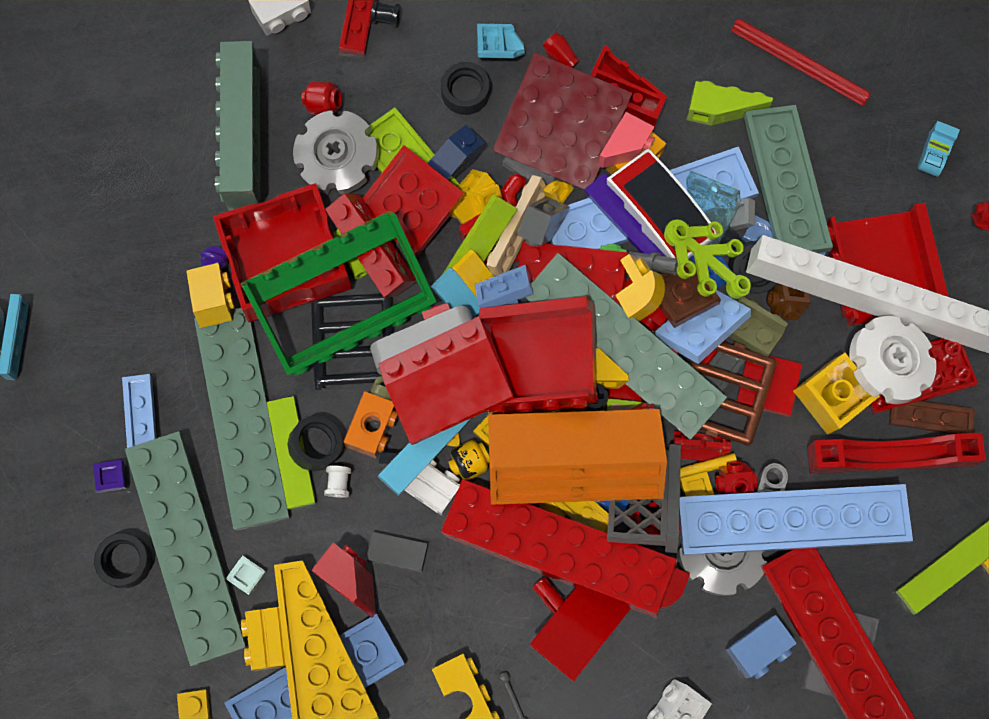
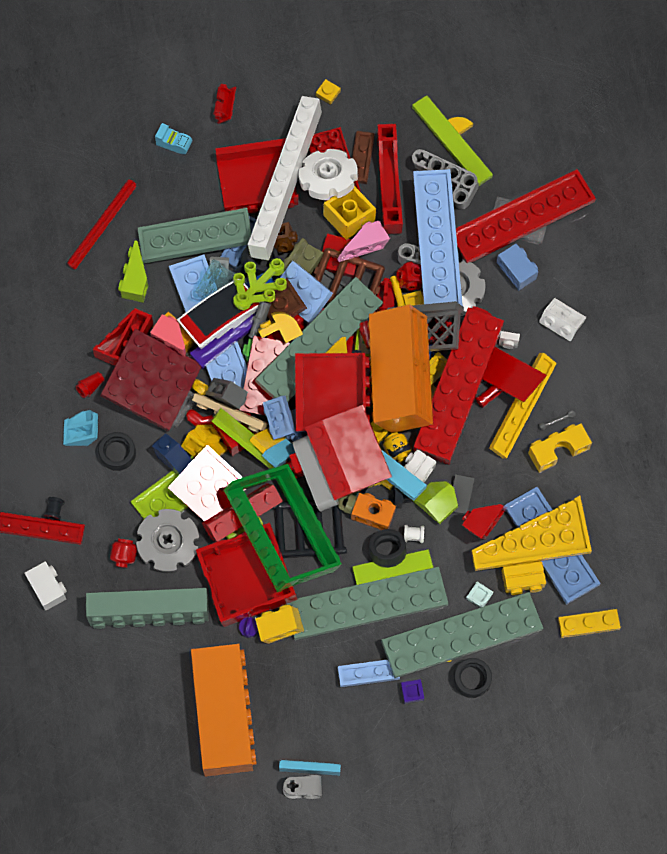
camera: 90 degrees left, 5 degrees down
(92, 221) = (223, 710): none -> orange brick
(386, 517) = (438, 500): none -> lime slope
(516, 639) = (520, 411): none -> yellow plate
(638, 629) = (509, 340): none -> white plate
(792, 419) = (369, 239): none -> bright pink slope
(898, 559) = (458, 182): none -> light grey beam

